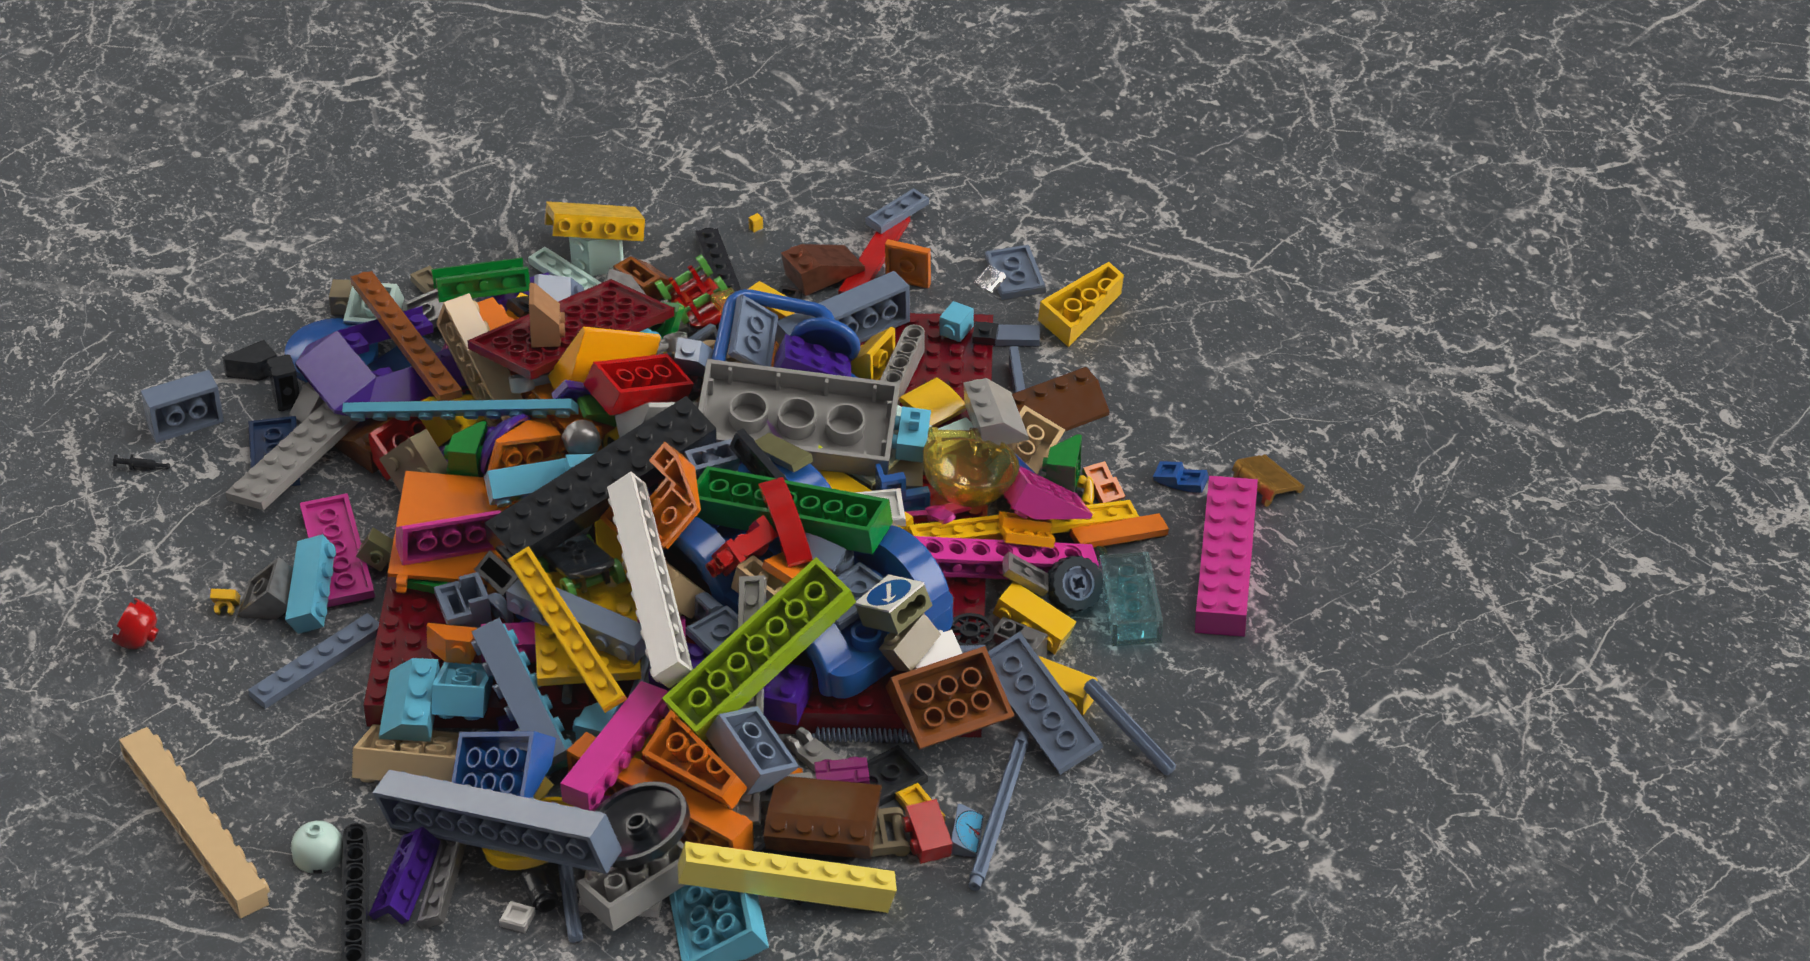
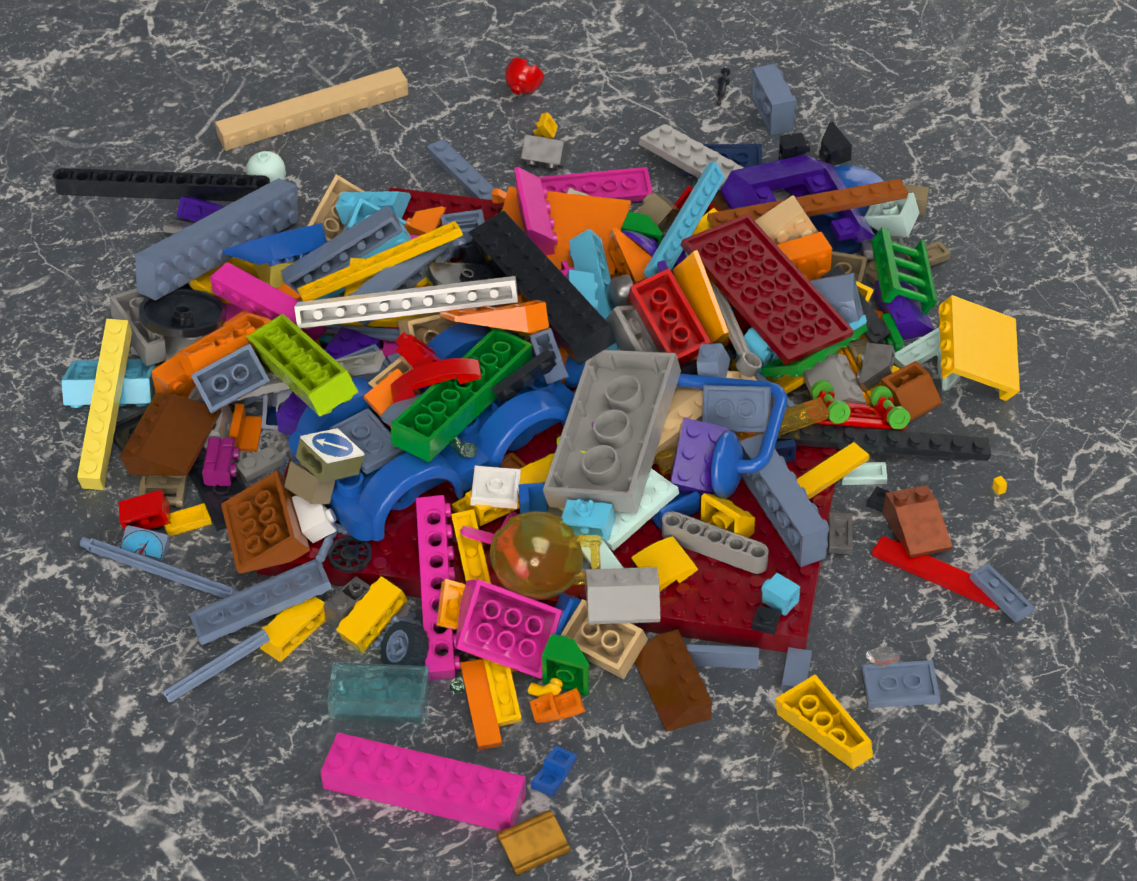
camera: 100 degrees right, 5 degrees up
(310, 584) = (541, 164): medium azure brick -> none
(546, 320) = (752, 248): medium nougat slope -> none
(784, 453) = (544, 398): olive tile -> none
(909, 262) = (901, 583): orange tile -> none
(1025, 574) = (406, 598): flat silver plate -> none

